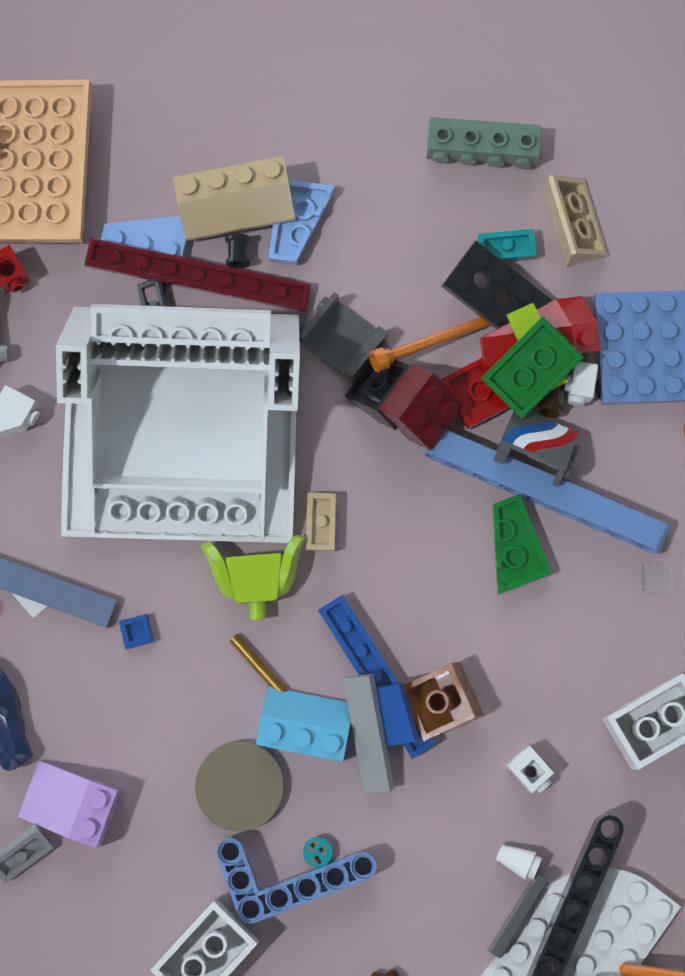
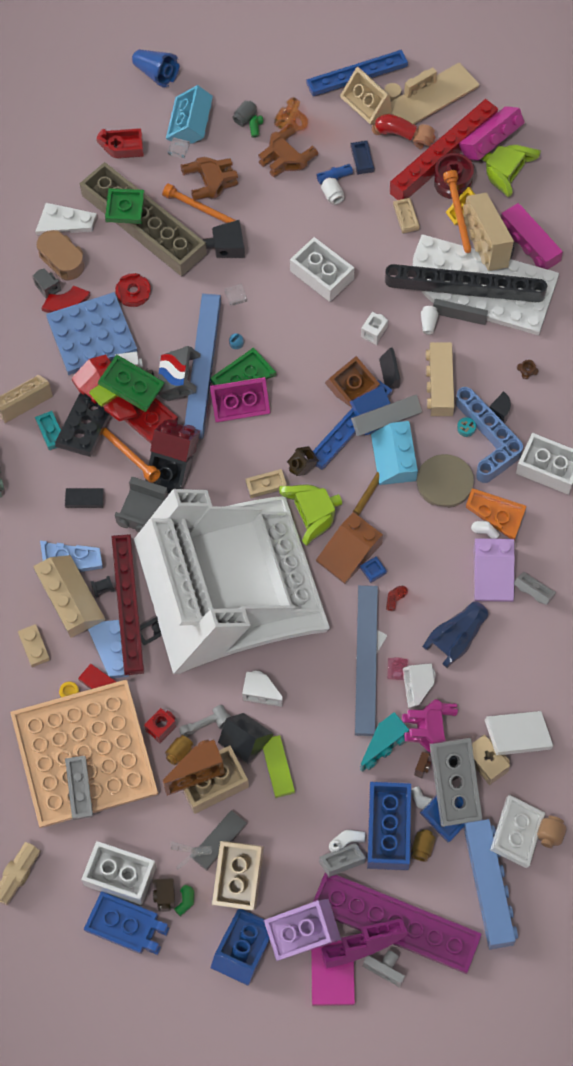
camera: 105 degrees left, 15 degrees down
(84, 646) = (394, 596): none -> clear red arm
(103, 169) = (68, 688): none -> yellow tile
(104, 209) = (94, 678): none -> red tile
(140, 816) = (485, 527): none -> white arm
(159, 846) = (499, 512): none -> orange wing
(176, 607) = (350, 547): none -> dark orange slope
(185, 141) = (33, 645): none -> tan plate
(327, 916) = (501, 407): none -> black brick
(332, 576) = (299, 464): none -> dark brown brick
(385, 265) = (84, 497): none -> black tile
(408, 841) = (441, 379): none -> tan brick
(451, 768) = (390, 369): none -> black slope
(466, 526) = (240, 399): none -> dark pink slope
(570, 557) = (238, 343): none -> dark azure hinge

